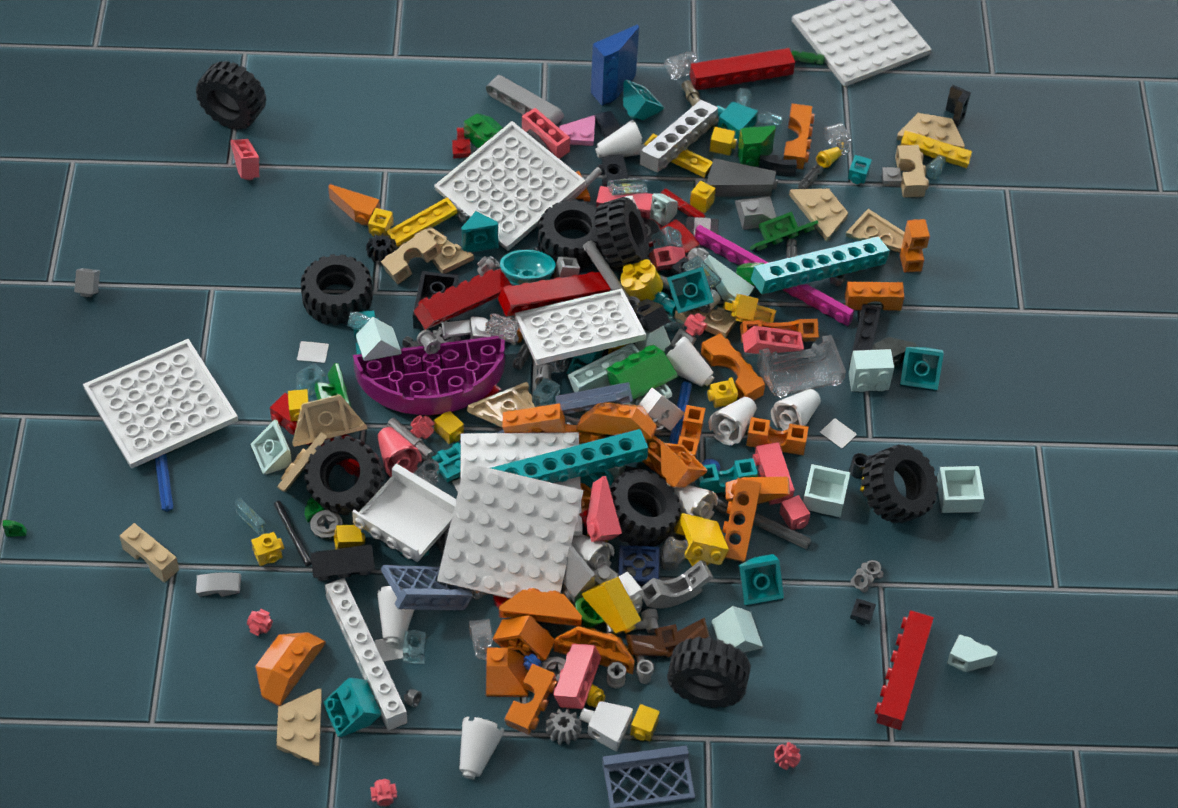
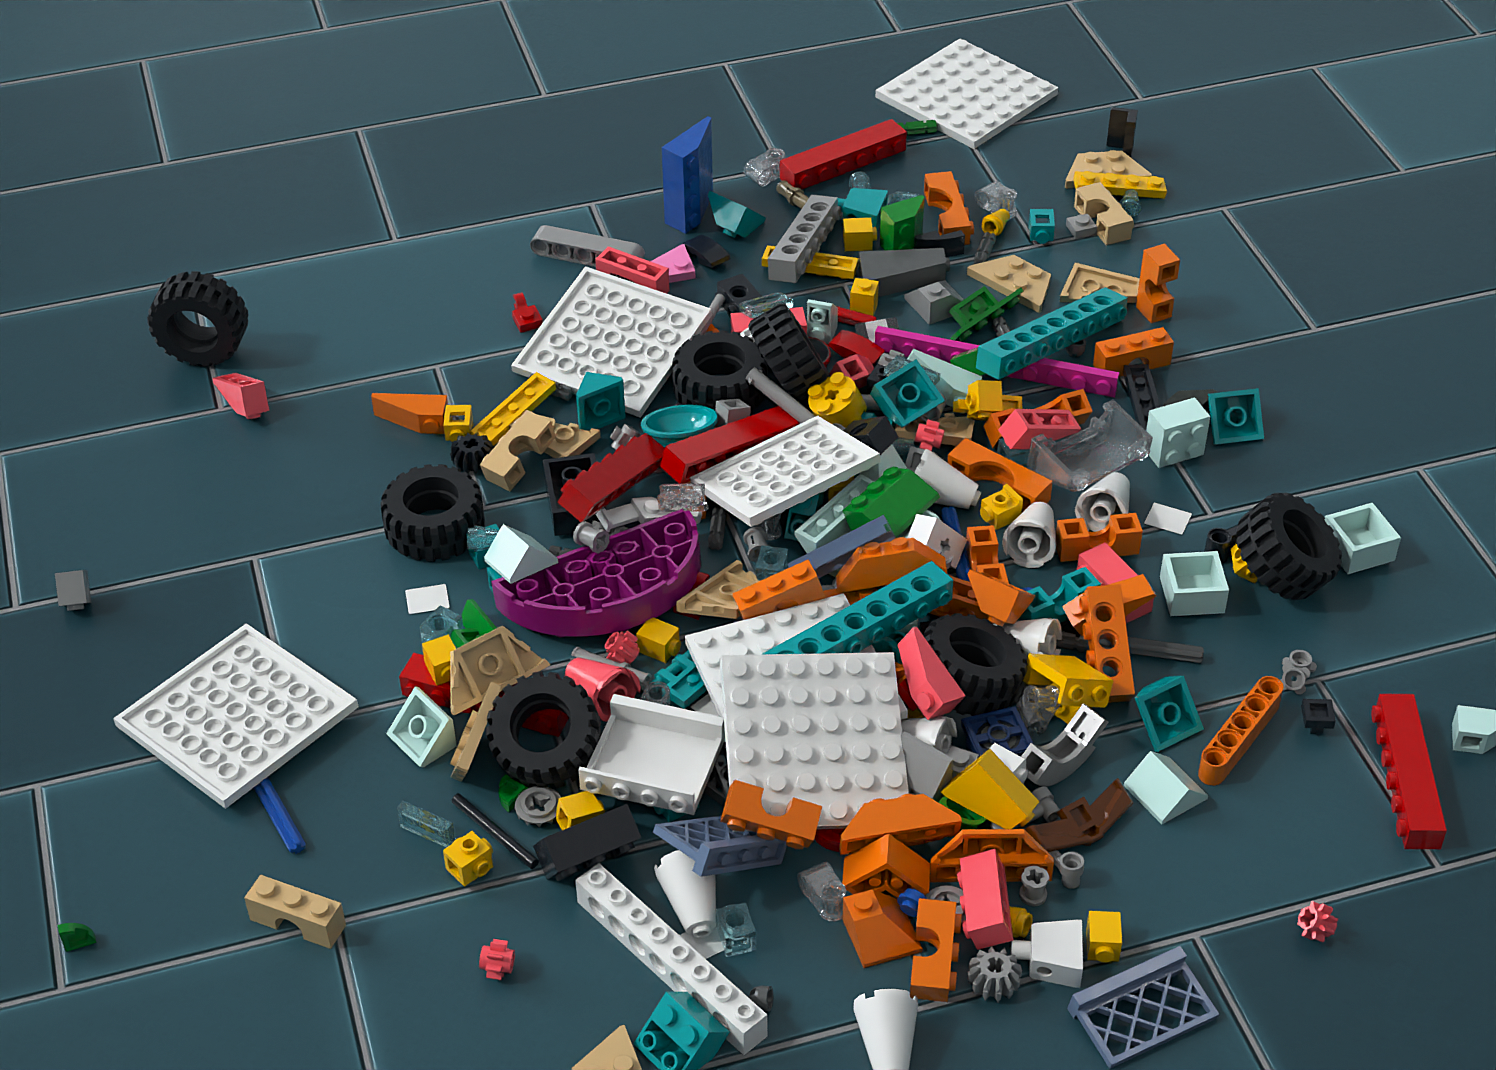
camera: 15 degrees left, 10 degrees down
(219, 583) = (420, 922): light grey slope -> none
(285, 664) = (557, 1007): orange wedge -> none
(443, 572) = (745, 811): none -> orange arch
(480, 129) = (543, 291): green slope -> none
(623, 141) = (736, 258): white cone -> none
(667, 237) = (842, 348): clear light blue brick -> none
(709, 672) = (1168, 838): black tyre -> none
(795, 513) = (1166, 621): coral brick -> none
(810, 599) = (1240, 730): none -> orange beam

